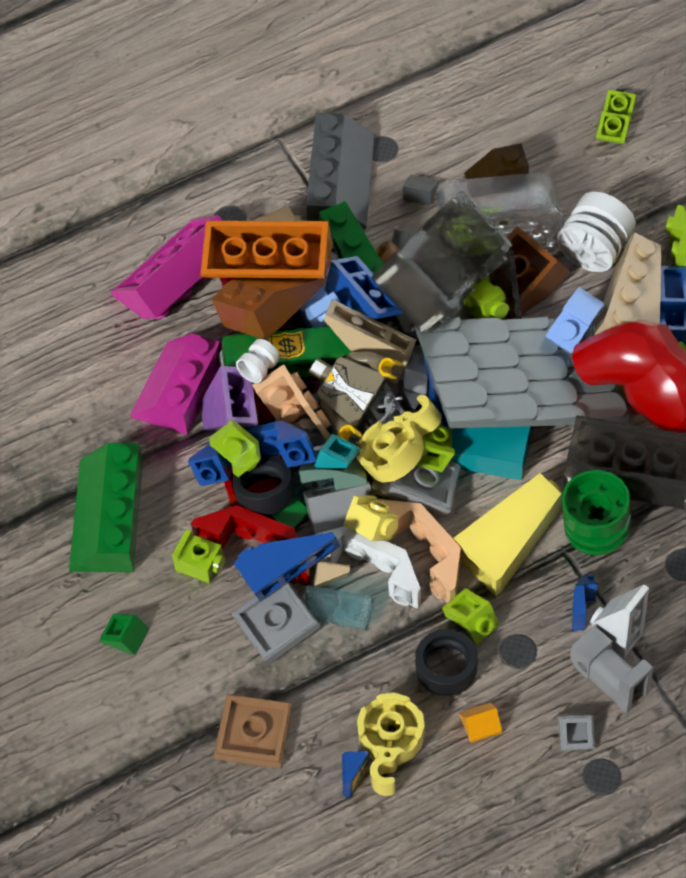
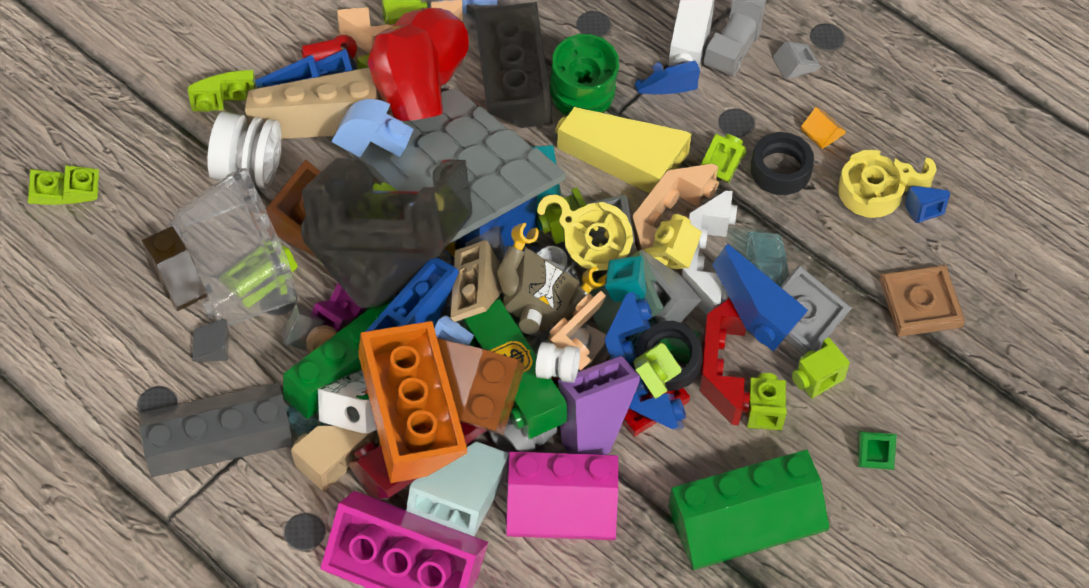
camera: 115 degrees left, 0 degrees up
(195, 310) = (461, 490): none -> light aqua slope
(212, 610) = (821, 369): none -> lime brick

